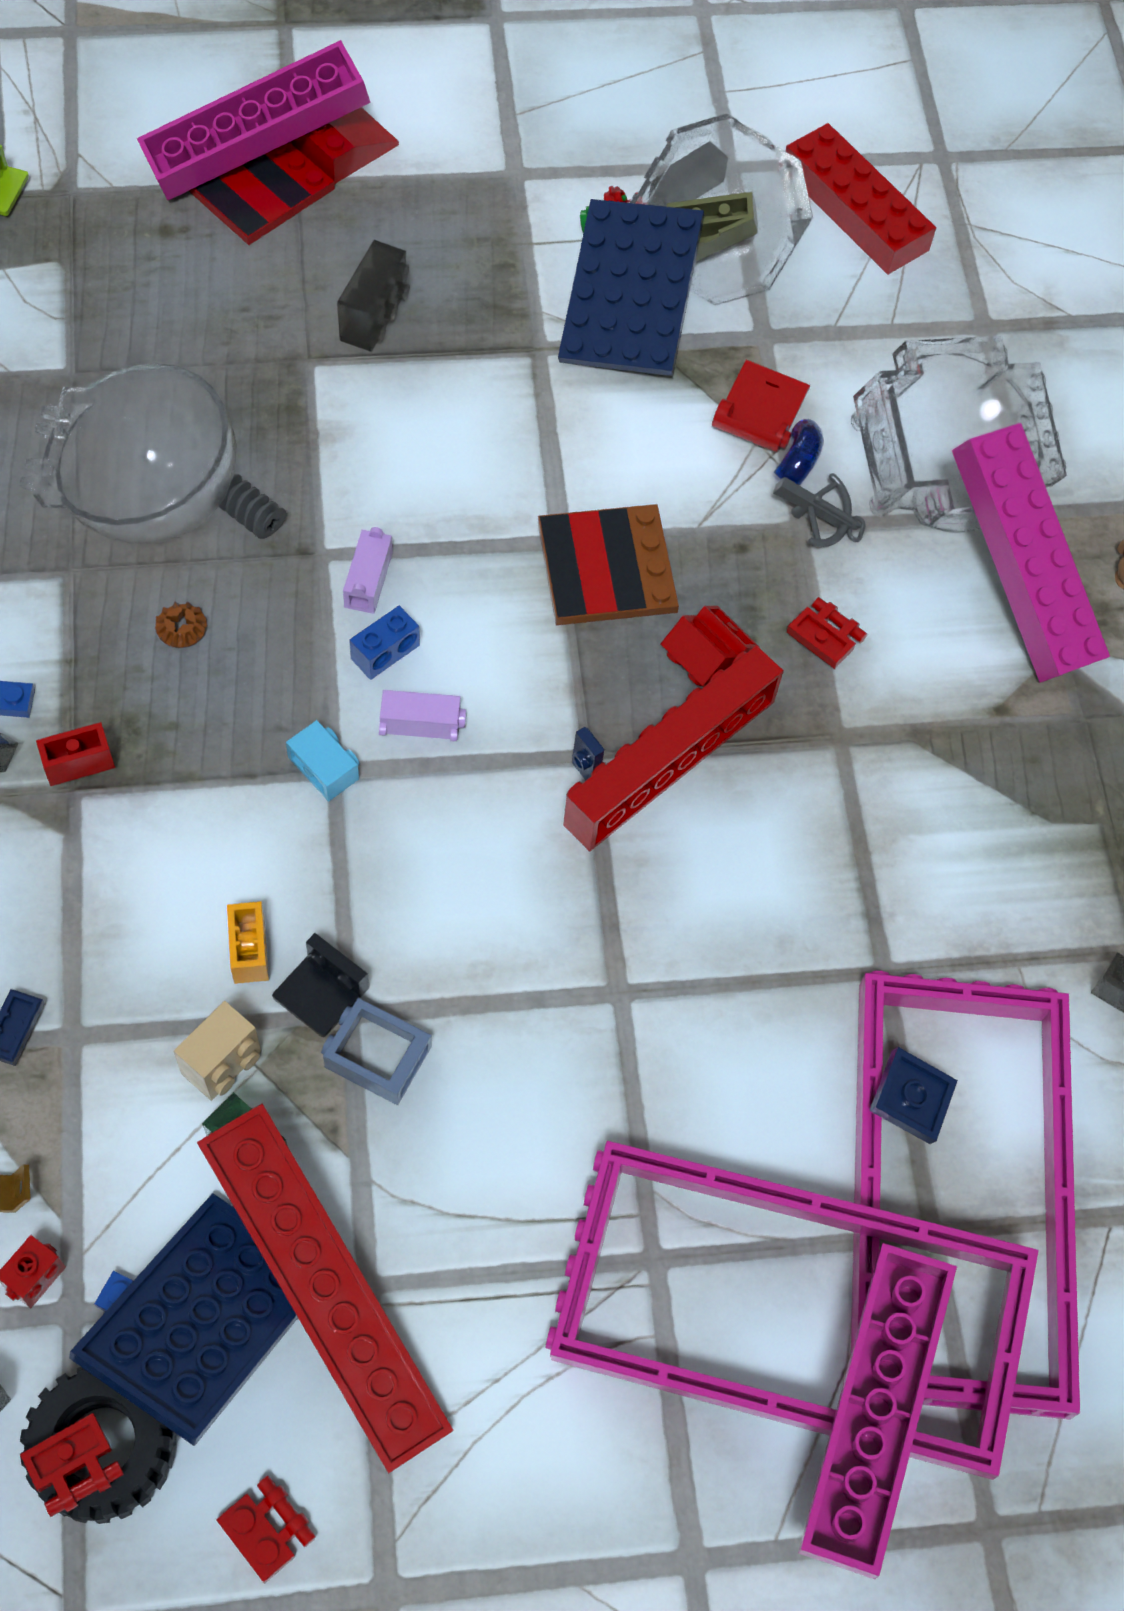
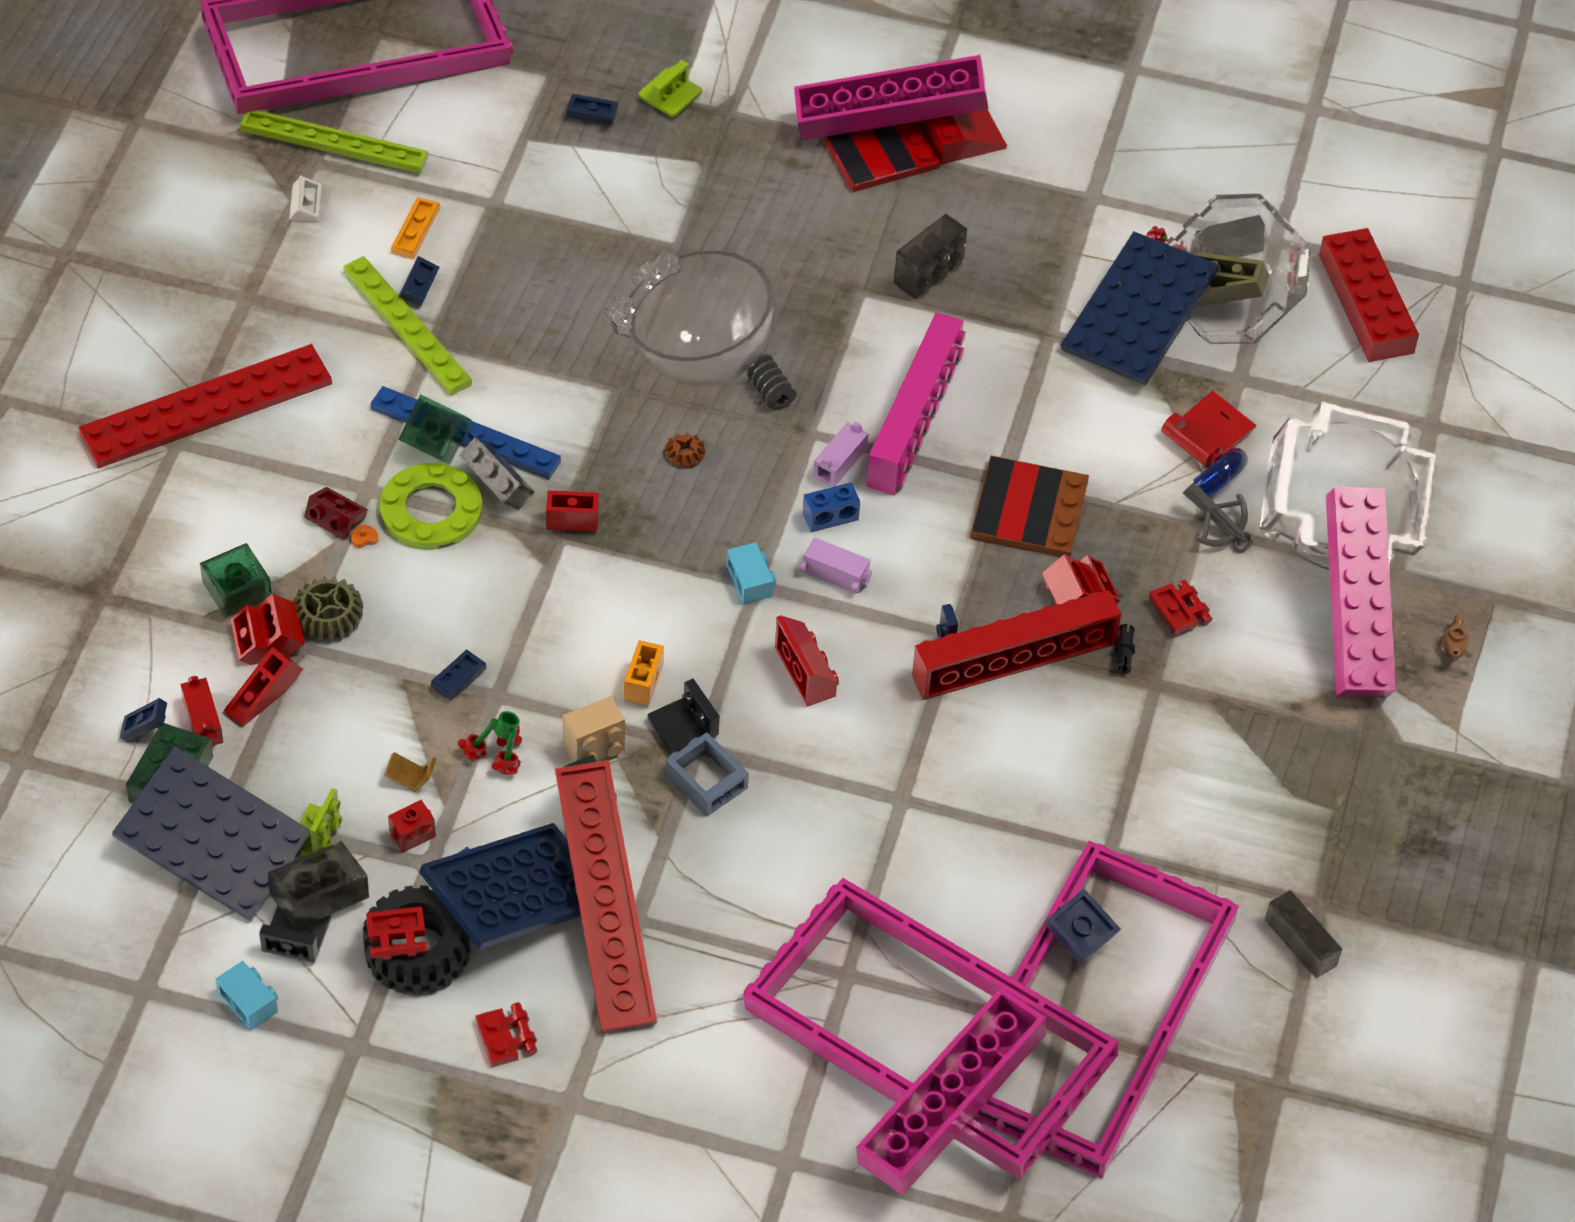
camera: 25 degrees right, 10 degrees down
(104, 1089) = (507, 733): none -> plant
(432, 482) = (915, 404): none -> dark pink brick
(436, 855) = (804, 661): none -> red slope
(791, 708) = (1124, 649): none -> black pin

